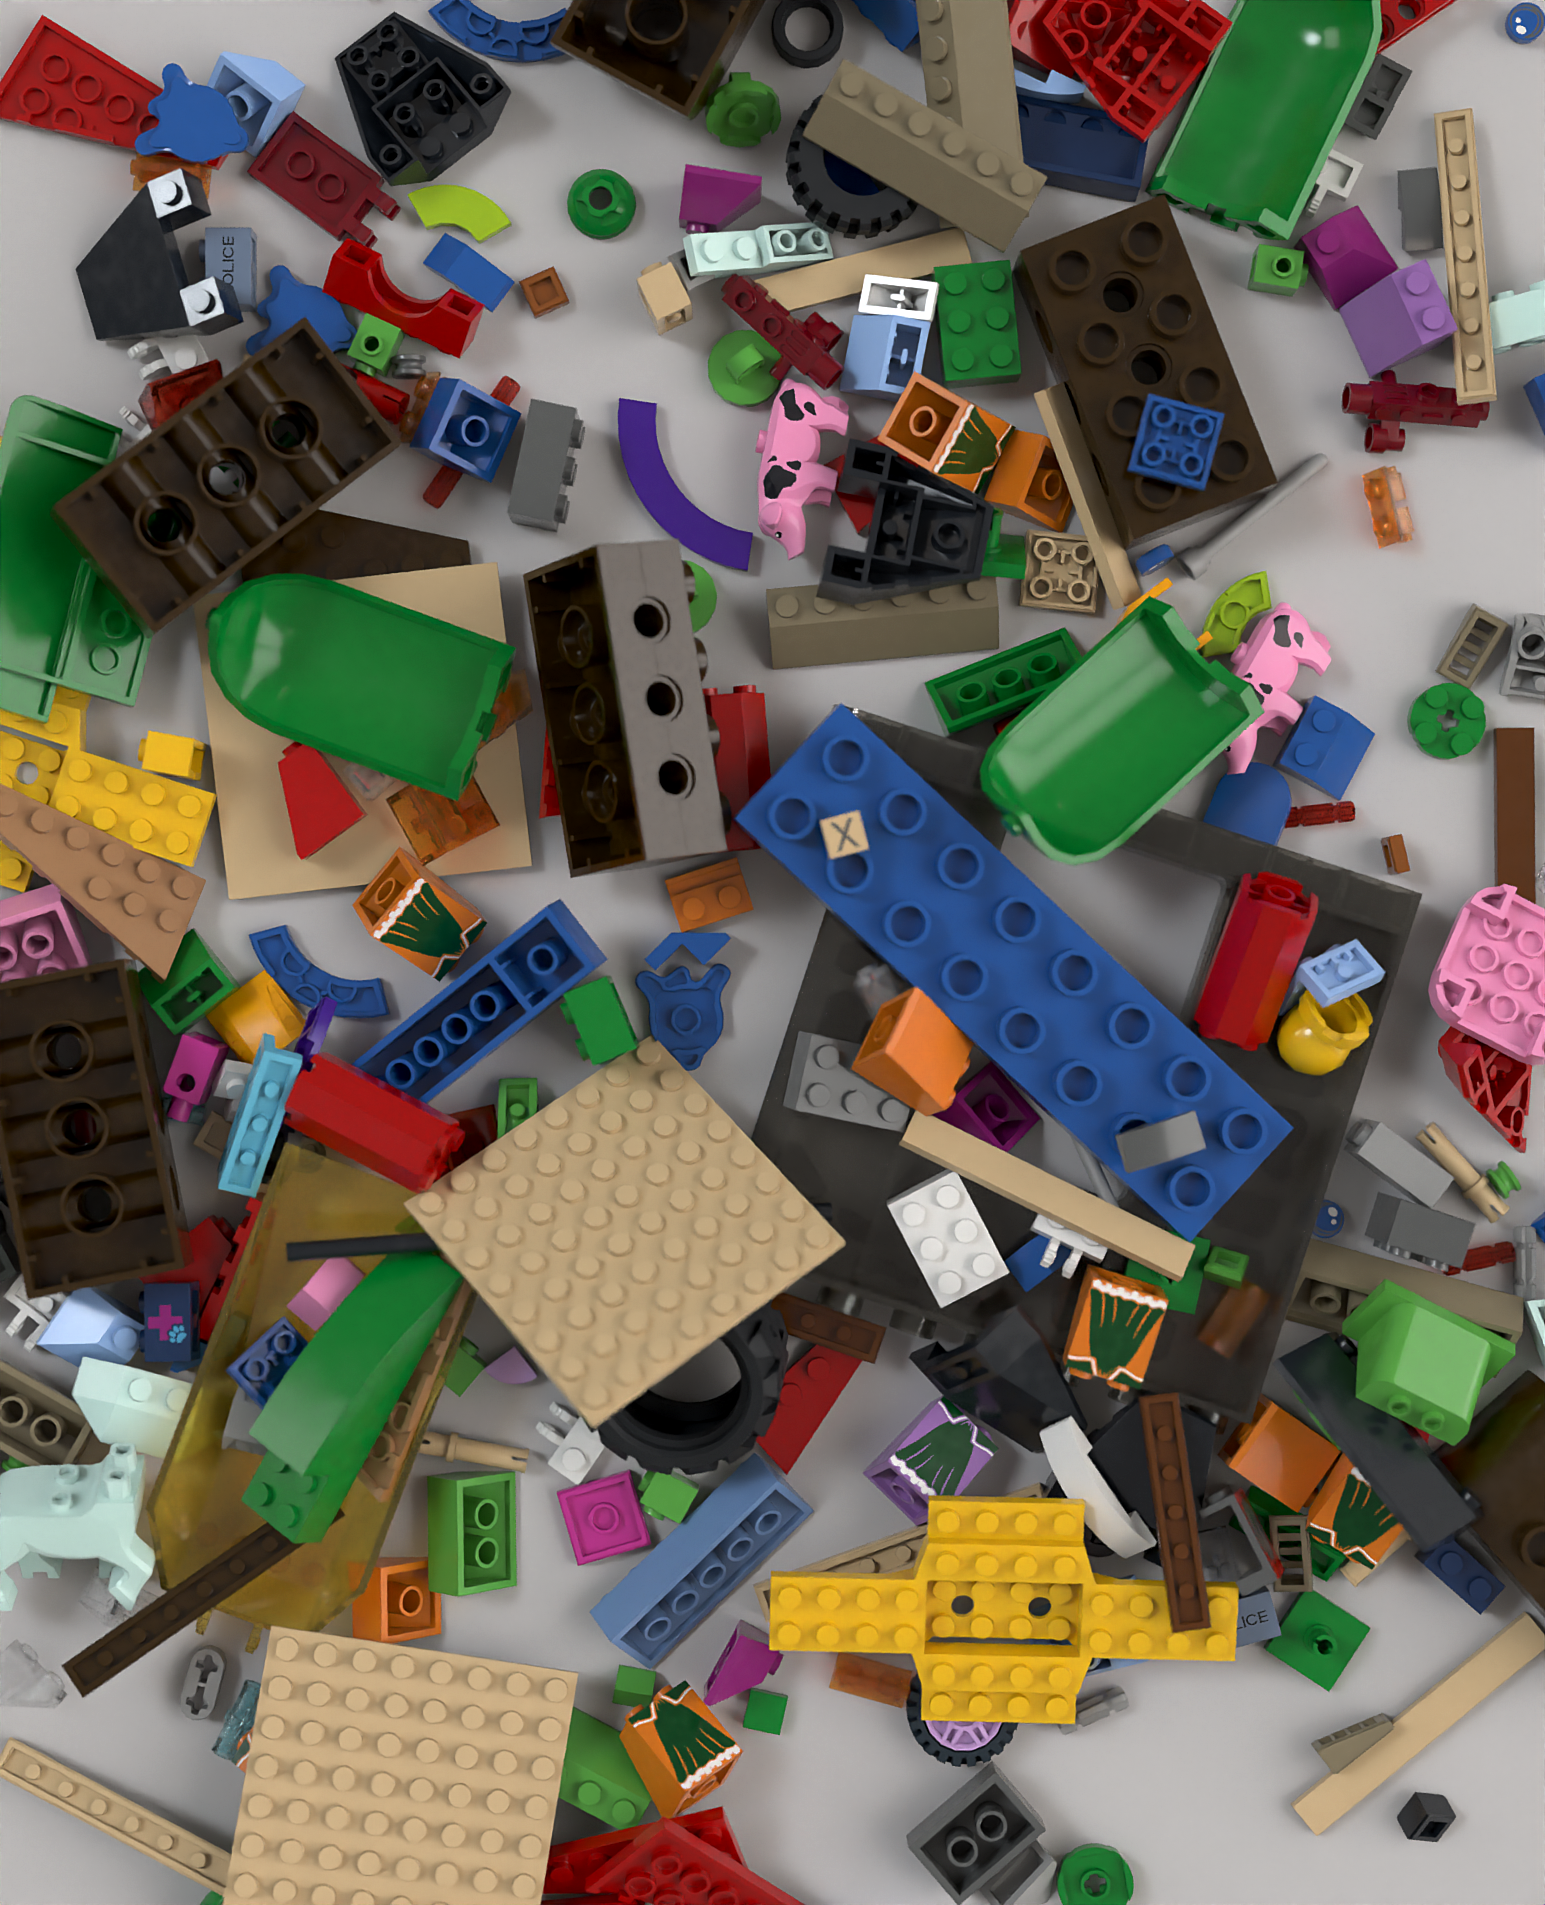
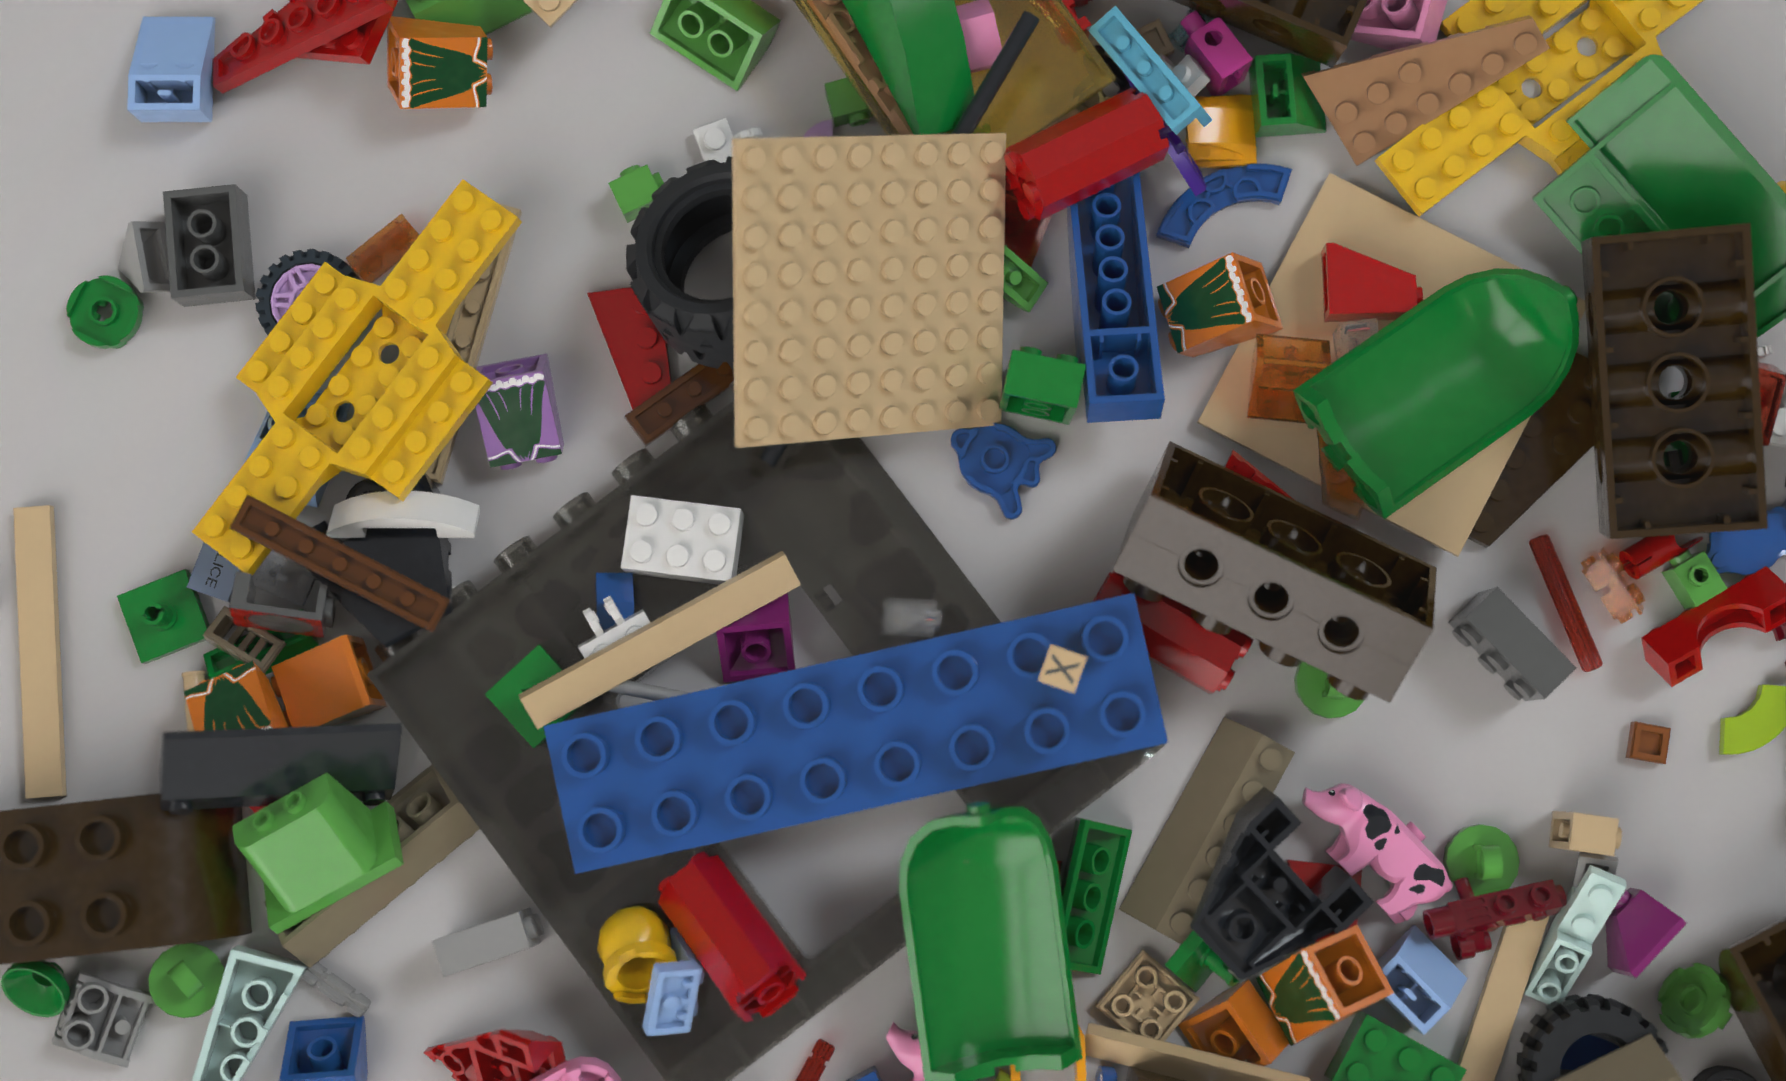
camera: 125 degrees right, 5 degrees down
(172, 755) = (1473, 202): yellow piece -> none
(408, 366) = (1659, 594): dark grey bush -> none
(465, 429) = (1581, 603): blue slope -> none
(468, 271) = (1705, 693): blue slope -> none
(474, 1451) = (786, 58): tan pin -> none
(604, 1517) = (654, 133): dark pink tile -> none
(606, 222) = (1673, 832): green piece -> none
(634, 1686) = (509, 68): bright green slope -> none
(663, 498) = (1419, 723): dark purple tile -> none
(700, 1561) = (567, 182): medium blue slope -> none
(701, 945) = (1044, 508): blue slope -> none
(709, 895) = (1079, 543): orange plate -> none
(741, 1664) = (466, 156): magenta slope -> none
(765, 1711) = (419, 153): green tile -> none
(828, 1087) = (857, 548): dark grey brick -> none
(898, 297) = (1460, 1023): white slope -> none
(914, 1052) = (846, 610): orange slope -> none
(1004, 1378) = (541, 507): black wedge -> none
(1096, 1709) = (235, 407): light grey axle -> none
(1114, 1328) = (518, 618): slope -> none
(1160, 1141) = (639, 754): dark grey slope -> none
(1226, 1267) = (503, 745): bright green slope -> none
(1234, 1318) = (460, 724): clear orange hinge -> none
(1252, 803) = (855, 1026): blue tile -> none
(1329, 1220) = (483, 855): blue tile -> none
(1348, 1744) = (65, 583): dark tan slope -> none
(1419, 1232) = (427, 914): dark grey brick -> none
(1462, 1575) = (125, 765): dark blue brick -> none
(1472, 1184) = (445, 989): tan pin -> none
(1485, 1257) = (367, 954): clear red axle -> none
(1503, 1179) = (414, 1018): bright green bush -> none

